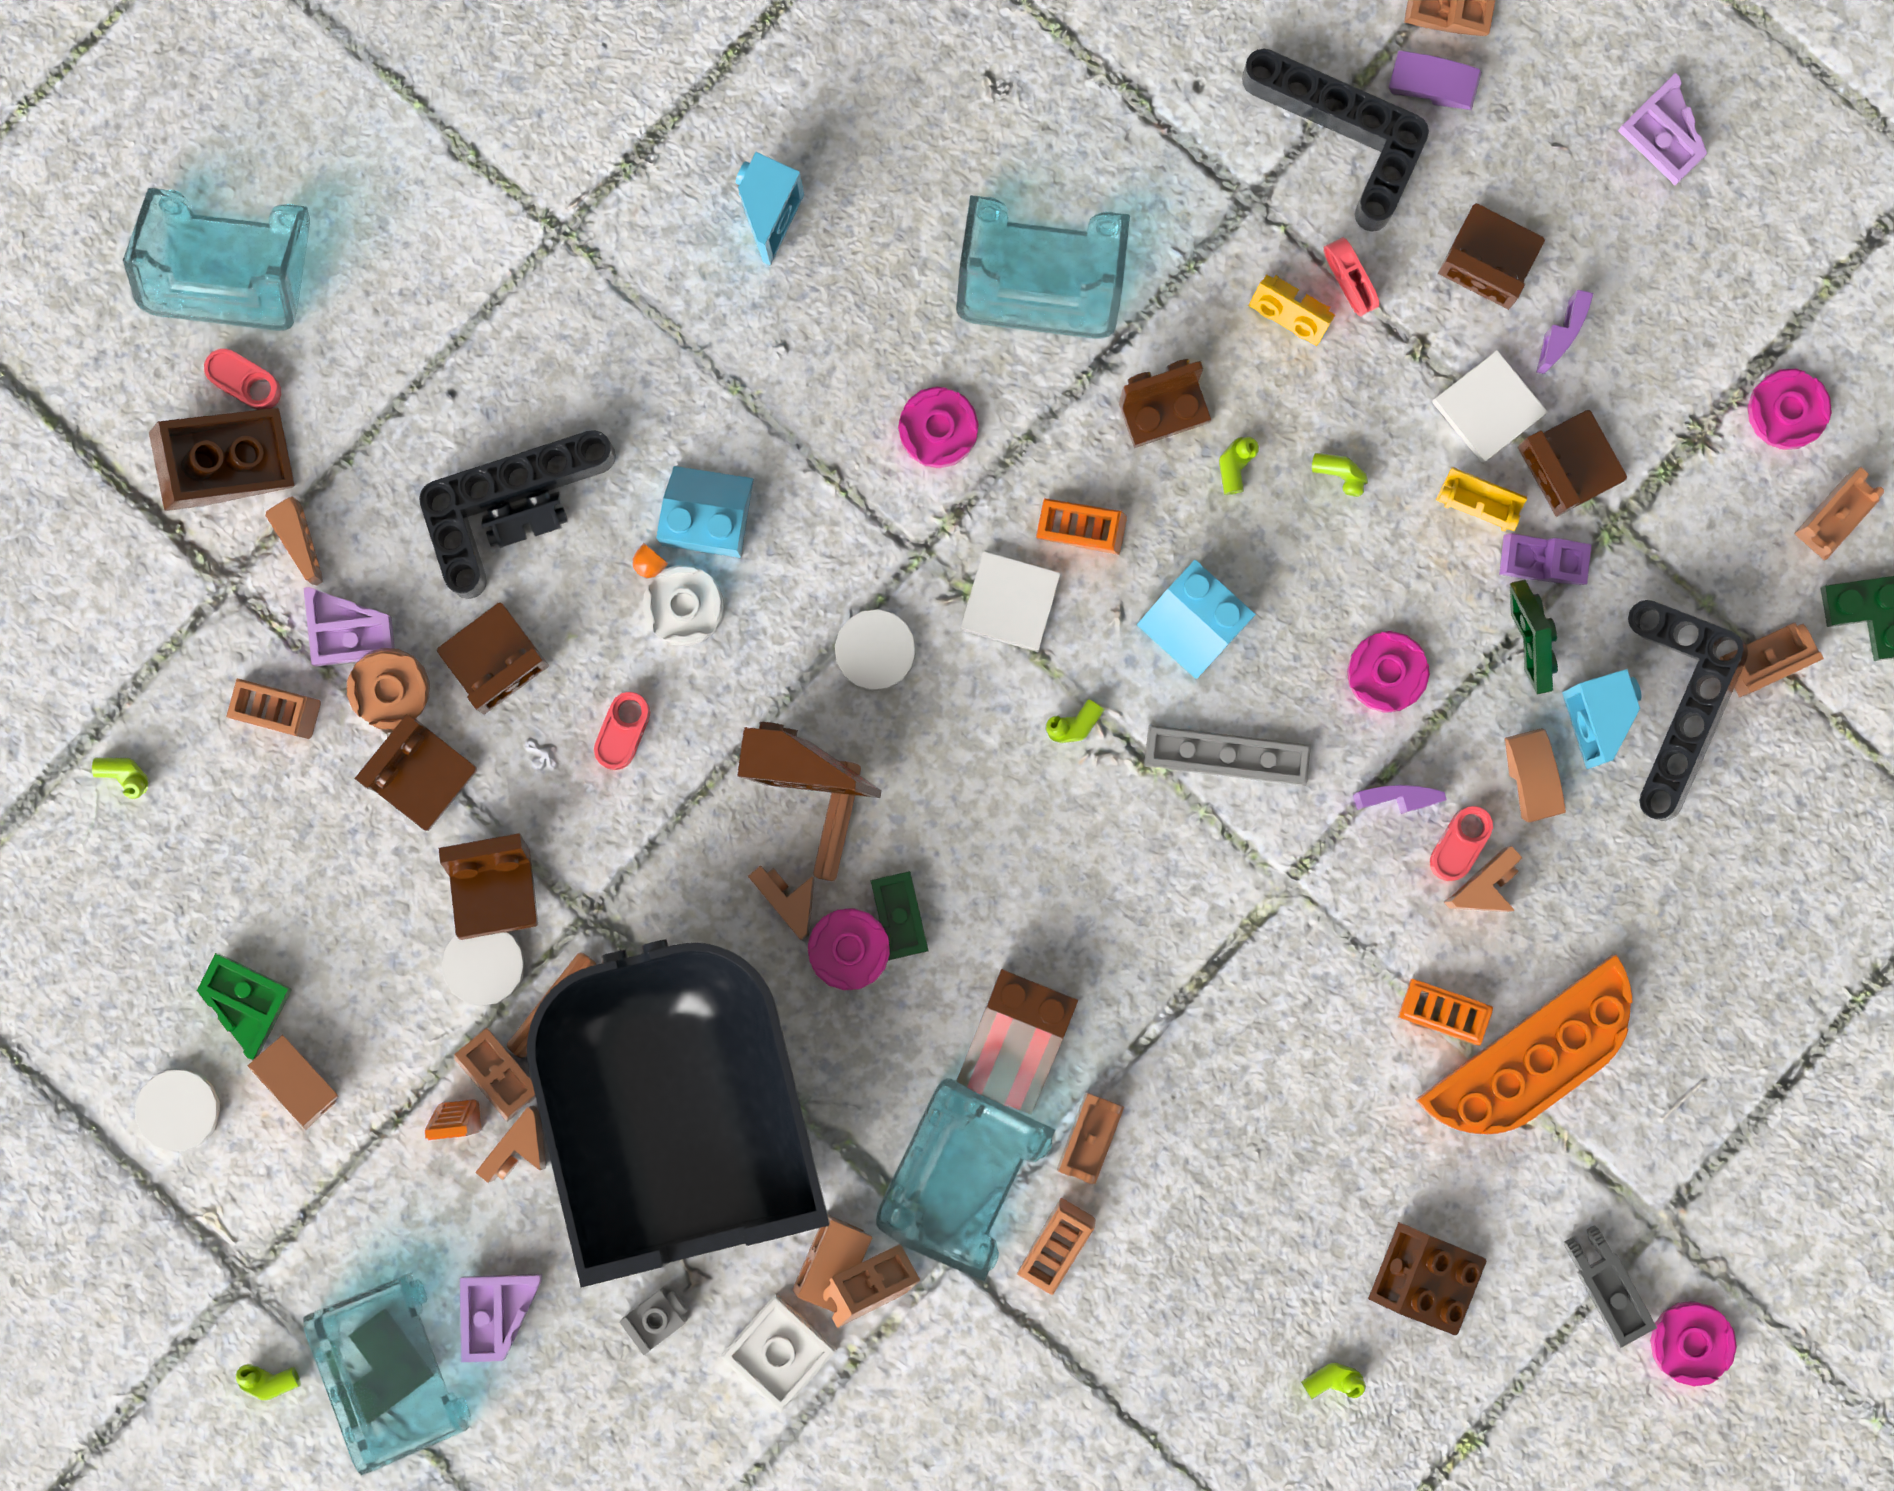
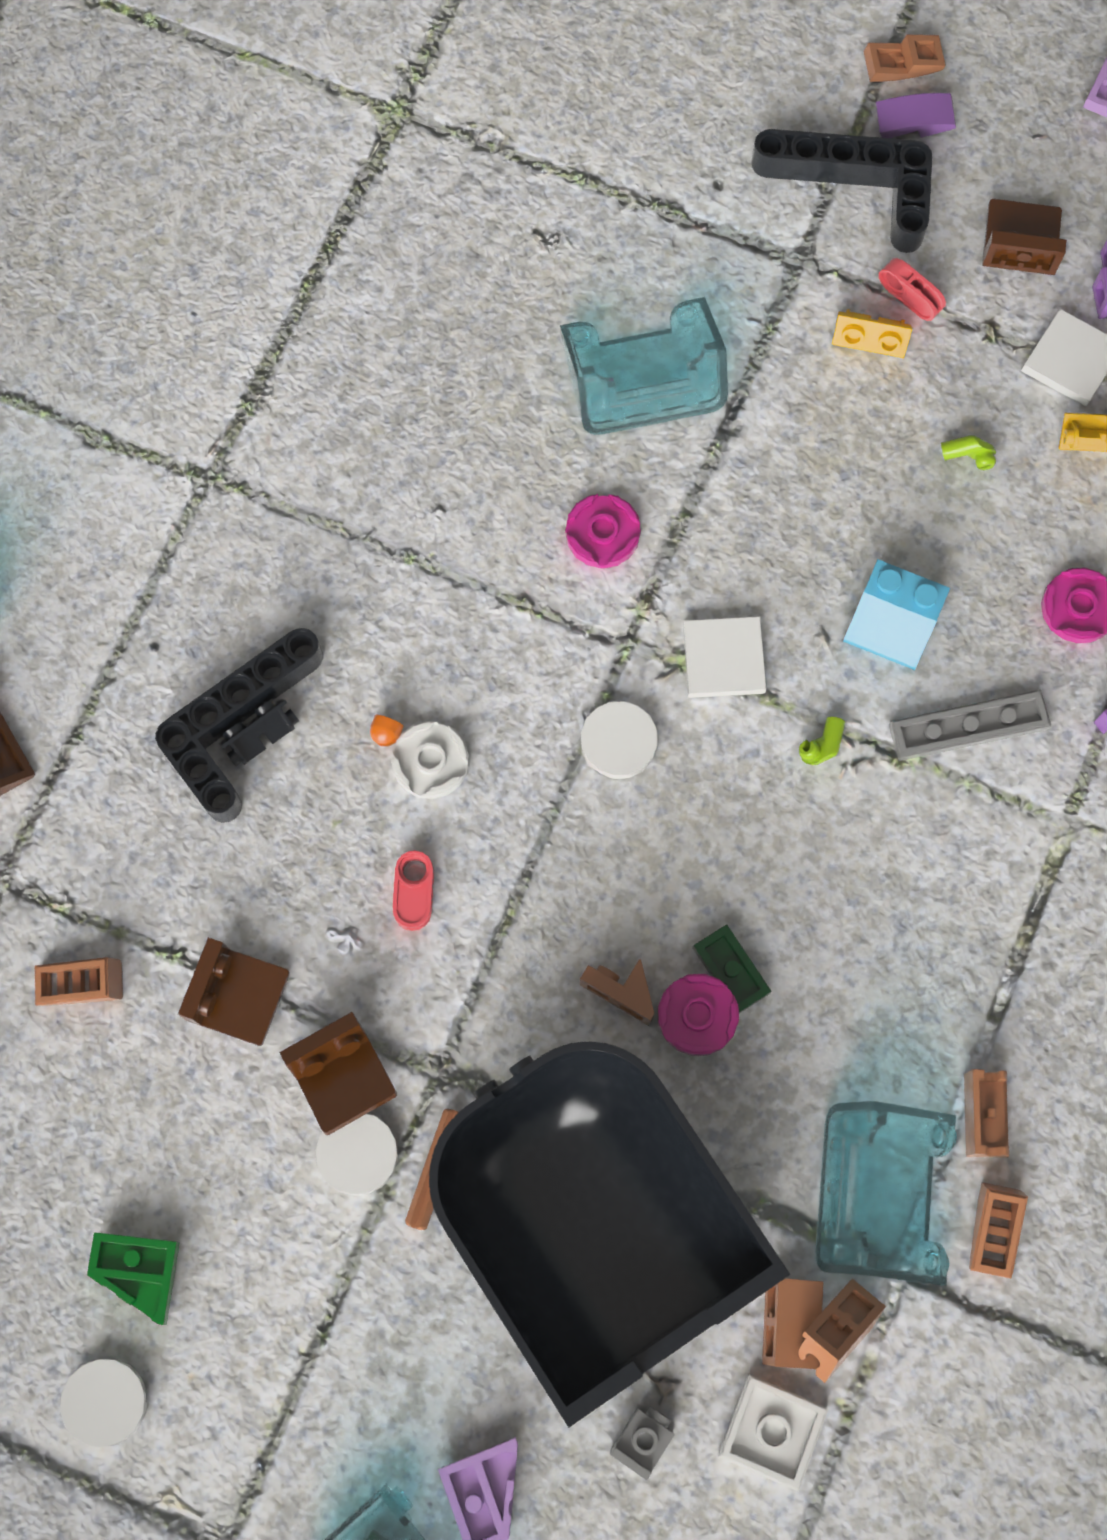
camera: 20 degrees left, 10 degrees down
(292, 529) = (43, 809): nougat slope -> none
(293, 1082) = (210, 1332): nougat hinge -> none
(343, 630) = (124, 886): lavender wing -> none
(387, 687) = (180, 923): nougat tile -> none
(454, 1120) = (380, 1312): orange slope -> none
(492, 658) = (270, 865): reddish brown bracket -> none
(496, 1074) = (405, 1253): nougat hinge -> none
(522, 1138) = (451, 1306): nougat slope -> none
(705, 512) = (422, 671): medium azure slope -> none
(770, 201) = (385, 385): medium azure slope -> none
(782, 759) = (581, 860): reddish brown slope -> none
(834, 832) = (641, 904): nougat axle -> none
(1017, 1041) = (885, 1042): slope -> none
(1116, 530) = (763, 584): orange slope -> none
(1164, 403) = (793, 441): reddish brown bracket -> none
(1234, 460) = (873, 473): lime arm -> none

